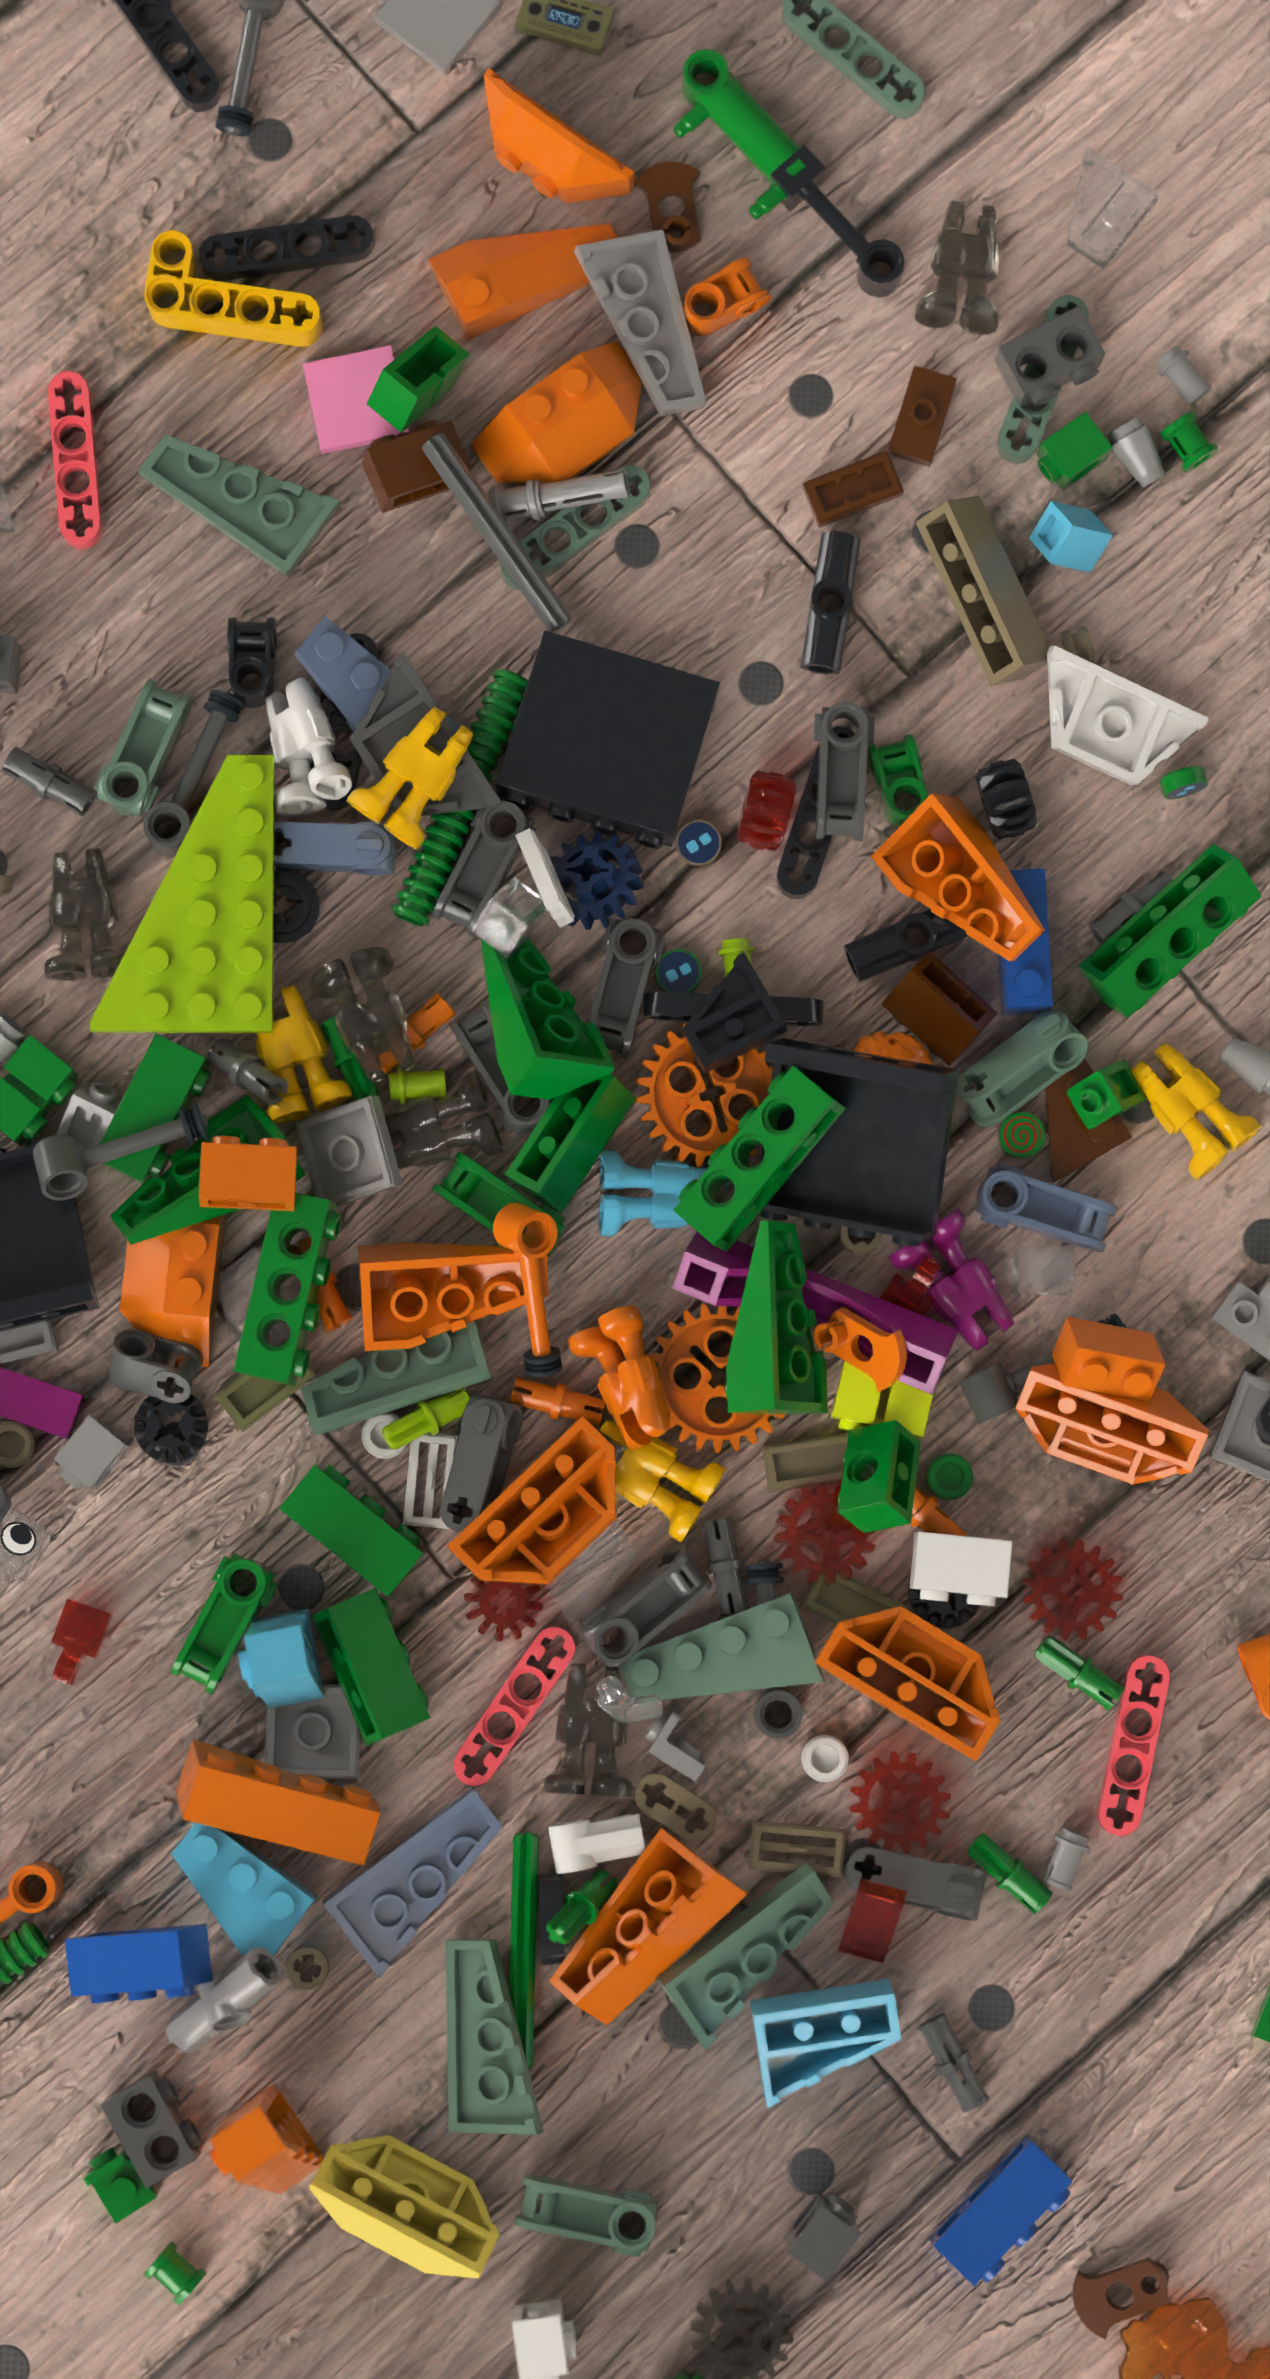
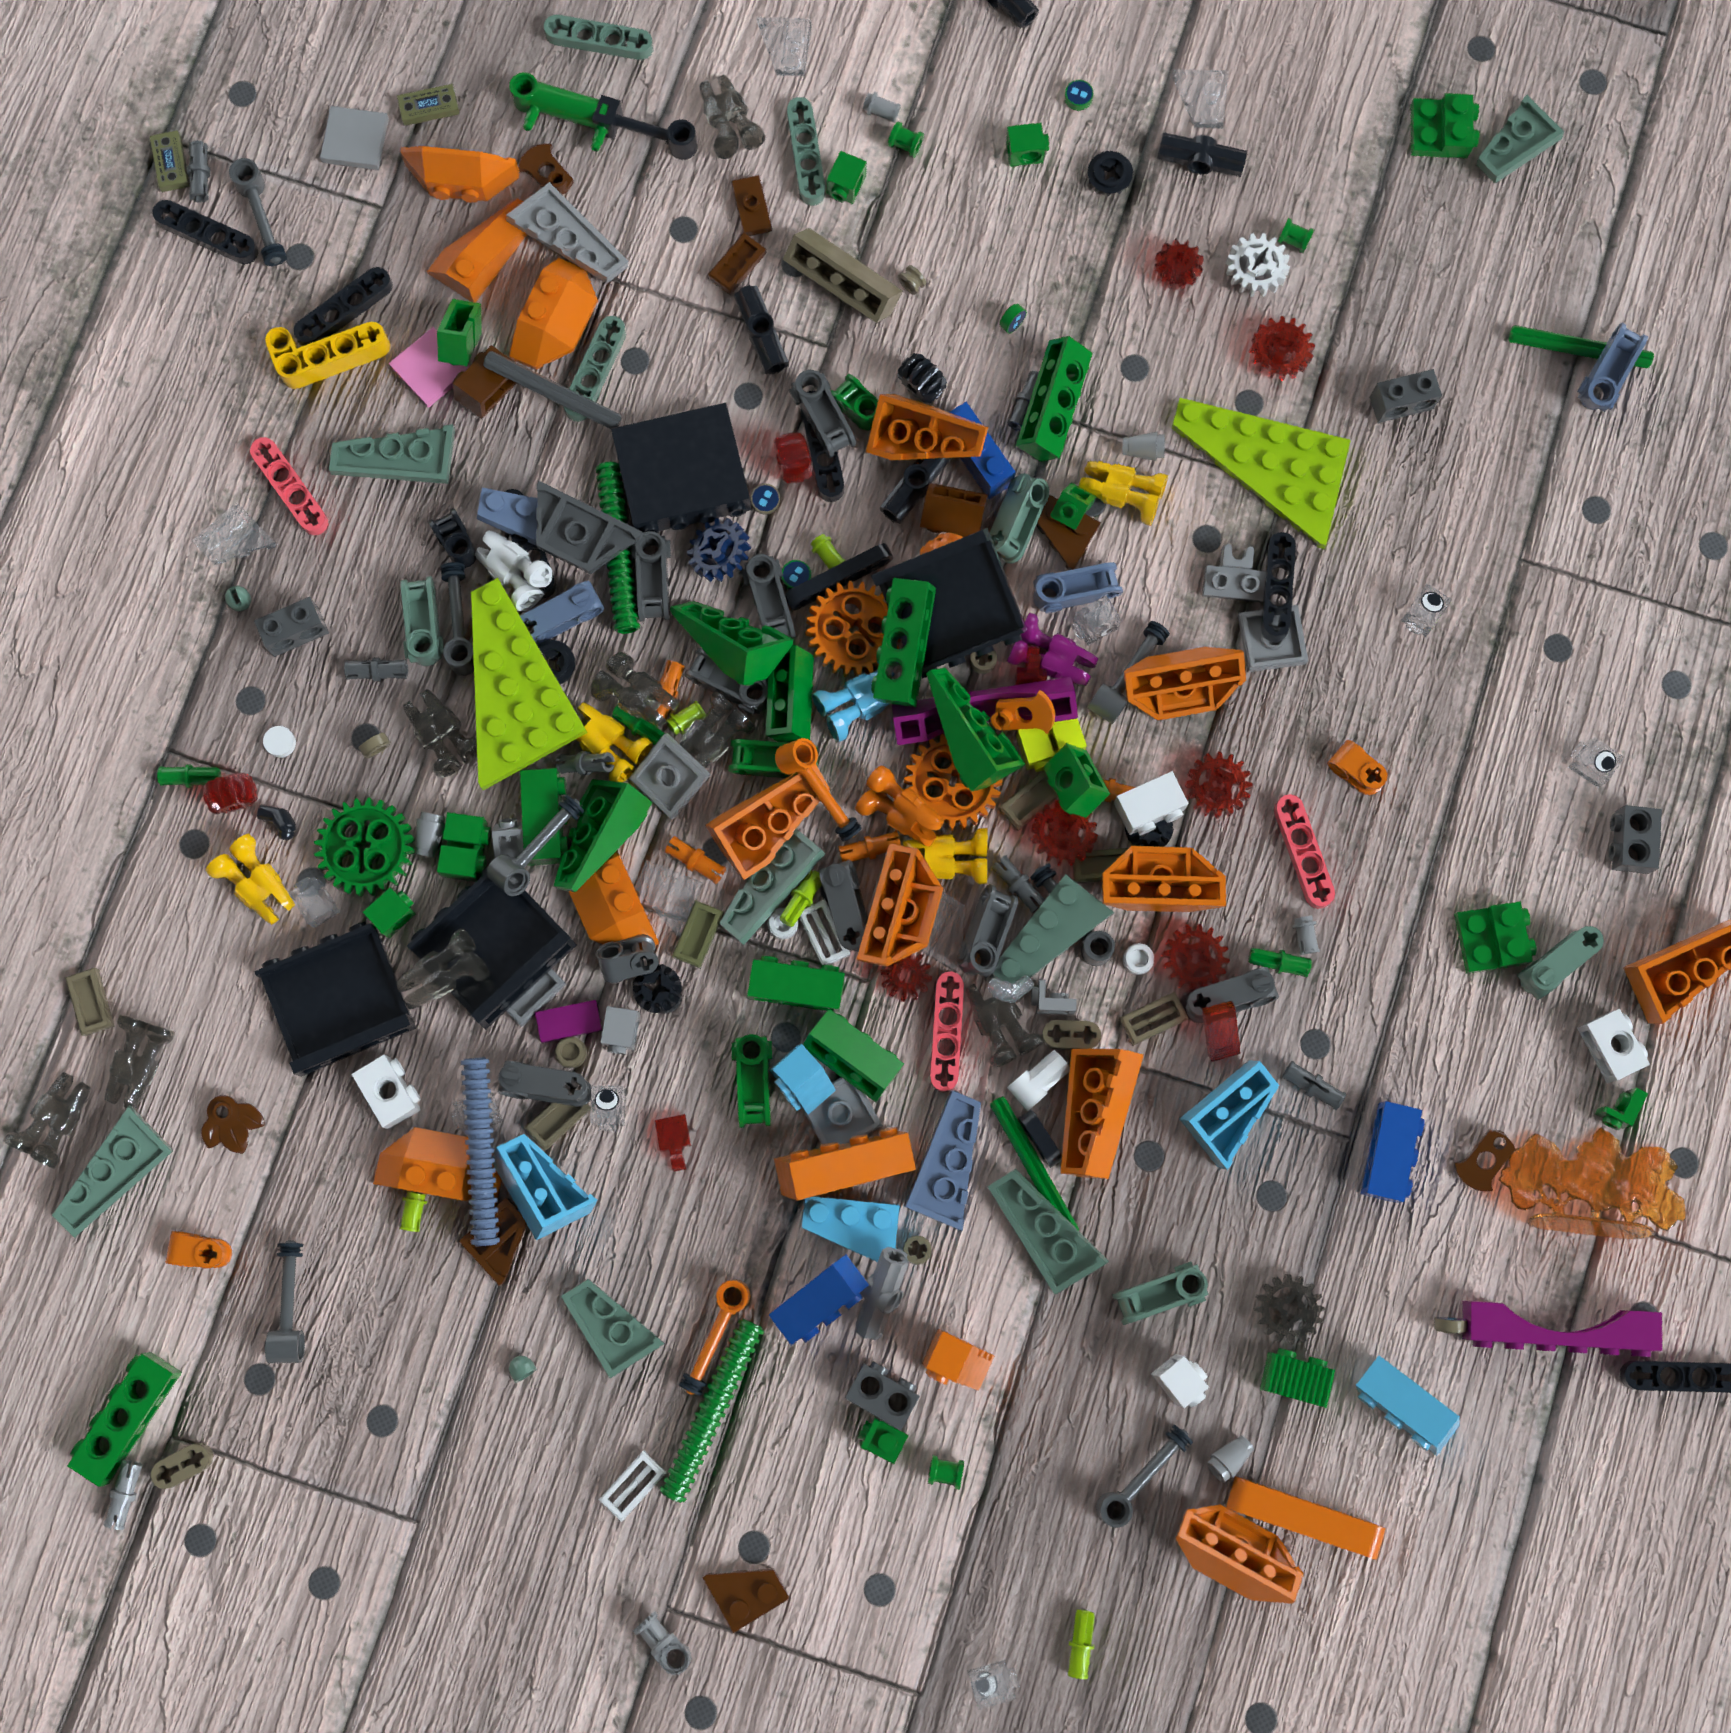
camera: 30 degrees left, 5 degrees down
(248, 1174) = (620, 813): orange brick -> none
(266, 1308) = (658, 825): green brick -> none
(407, 2205) = (1057, 1351): light yellow wedge -> none
(419, 764) = (588, 536): yellow piece -> none
(510, 917) = (684, 594): clear brick -> none
(537, 498) = (565, 362): light grey pin -> none
(545, 877) = (692, 560): white tile -> none
(581, 1908) = (1054, 1120): green axle -> none
(726, 1966) = (1155, 1104): sand green wing -> none
(730, 292) = (605, 197): orange piece -> none
(734, 1018) = (843, 577): black wing -> none
(823, 2234) = (1302, 1223): dark grey brick -> none
(949, 1476) = (1112, 763): green tile -> none
(1021, 1135) = (1039, 556): green tile -> none
(1043, 349) = (798, 130): dark grey brick -> none
(1070, 536) = (872, 223): medium azure panel -> none
(1079, 1671) = (1250, 828): green axle -> none
(1108, 1359) = (1163, 644): orange brick -> none
(1112, 719) = (953, 306): white wing -> none
(1137, 451) = (881, 159): light grey cone -> none

